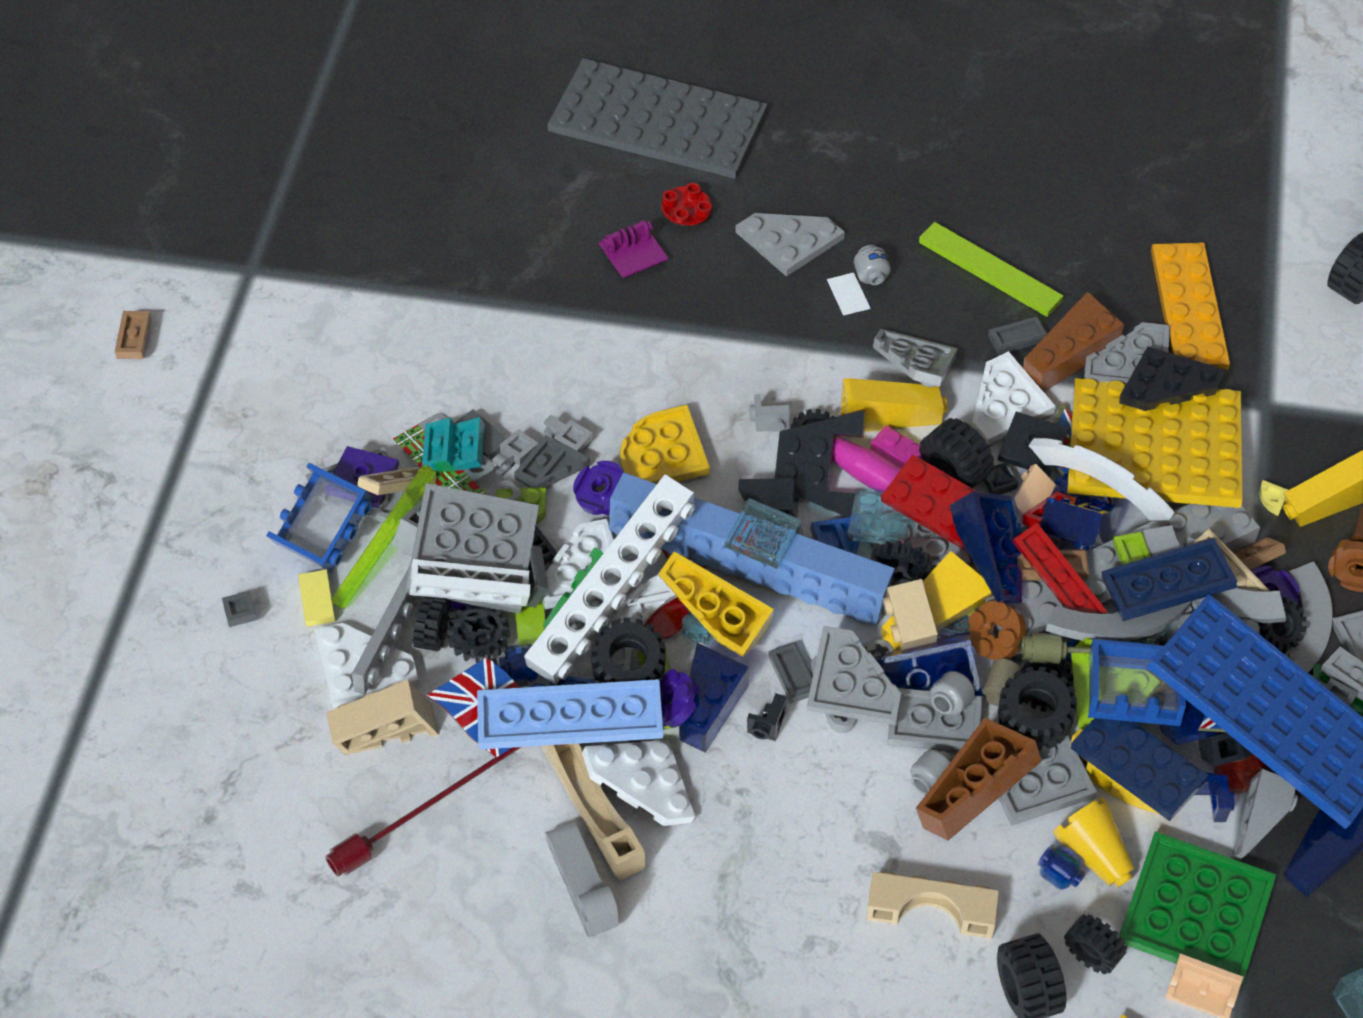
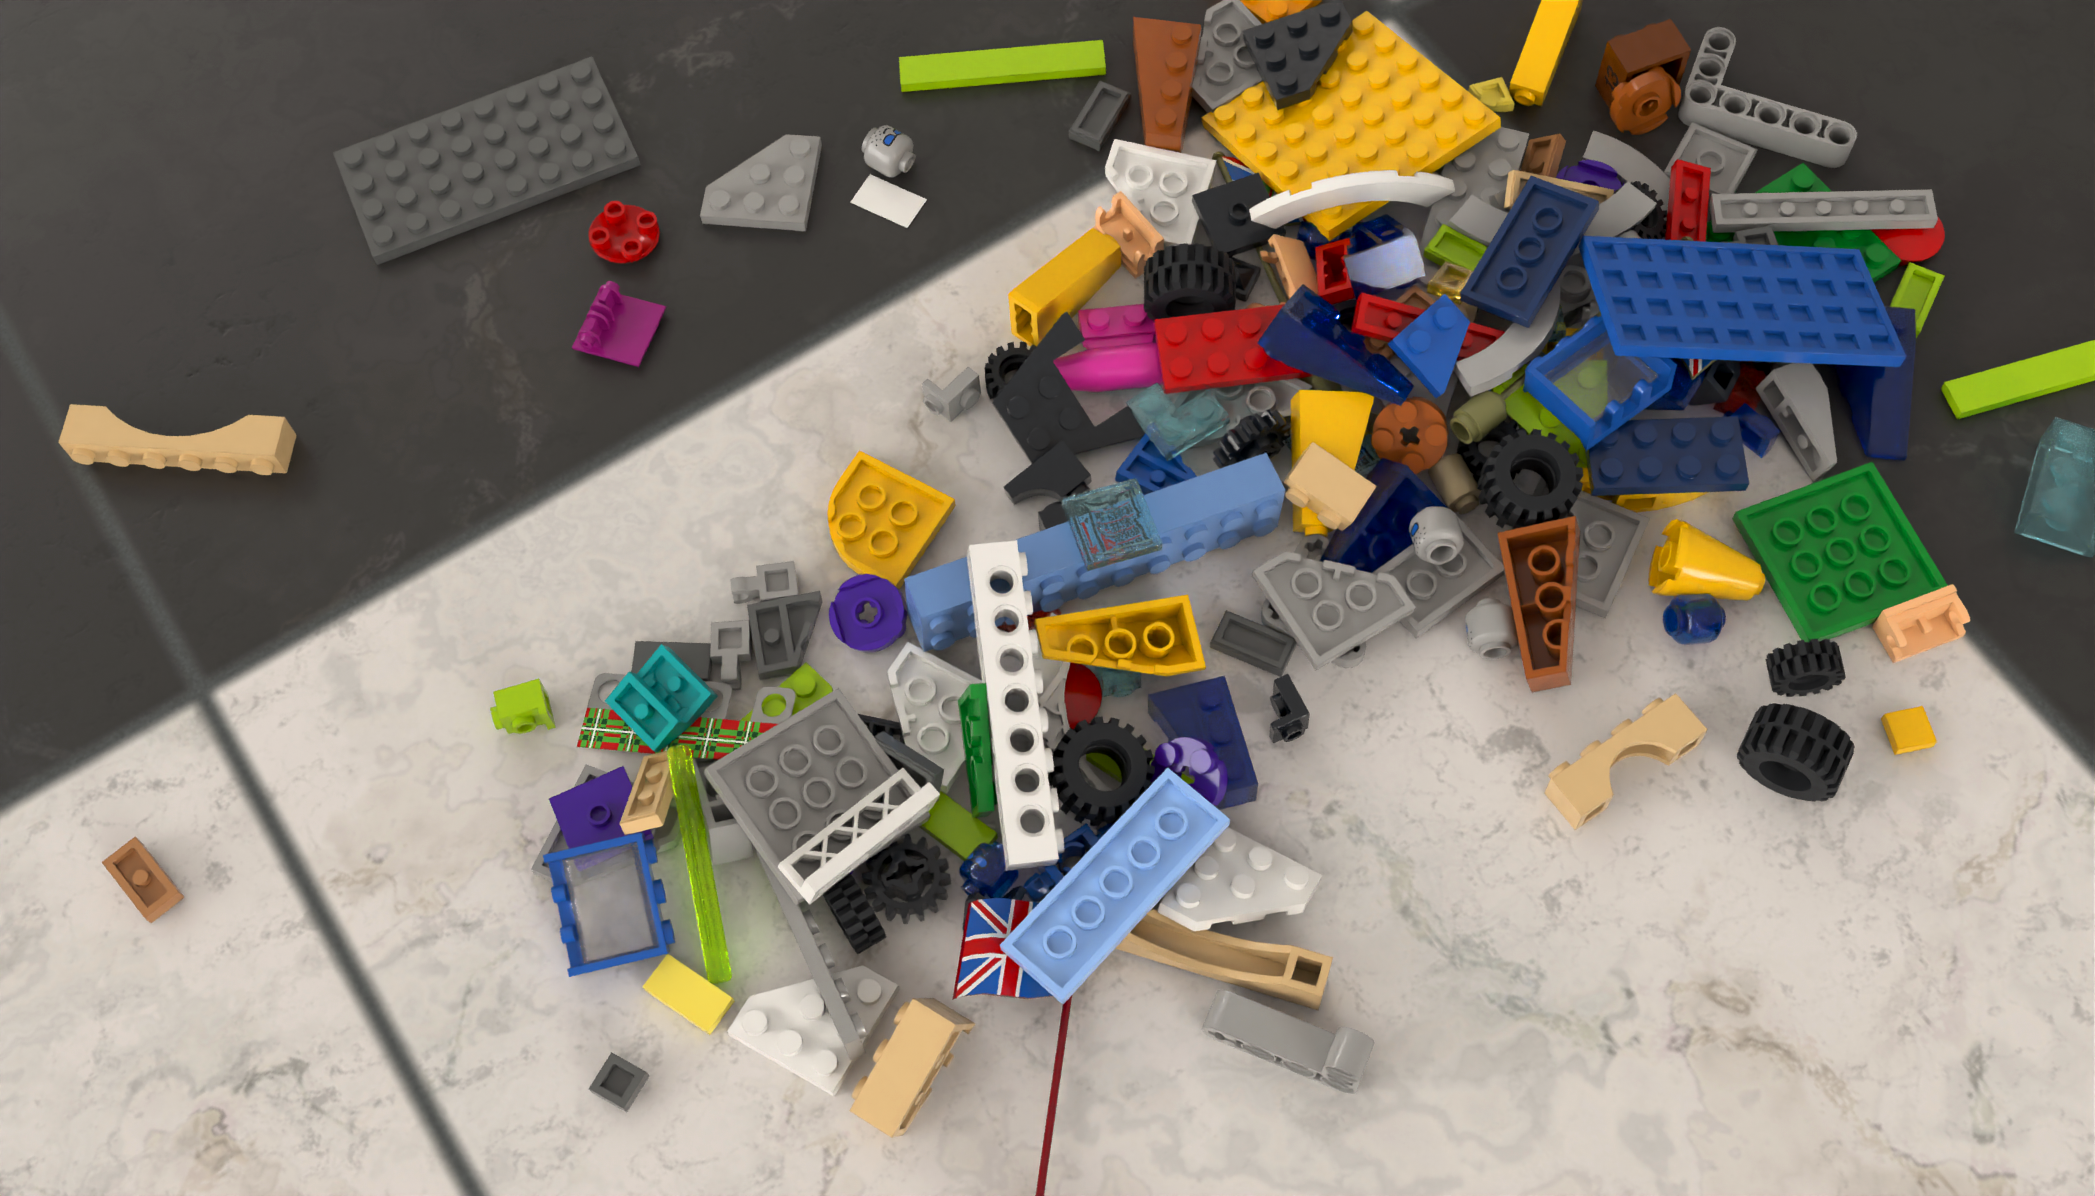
camera: 40 degrees left, 10 degrees up
(384, 396) = (522, 708): none -> lime brick
(391, 169) = (249, 444): none -> tan arch
(916, 357) = (1037, 213): light grey plate -> none
(961, 401) = (1131, 231): none -> light nougat hinge
(1053, 583) = (1433, 344): none -> blue wing
(1106, 561) = (1449, 281): none -> clear yellow tile
(1322, 642) = (1688, 201): none -> red plate

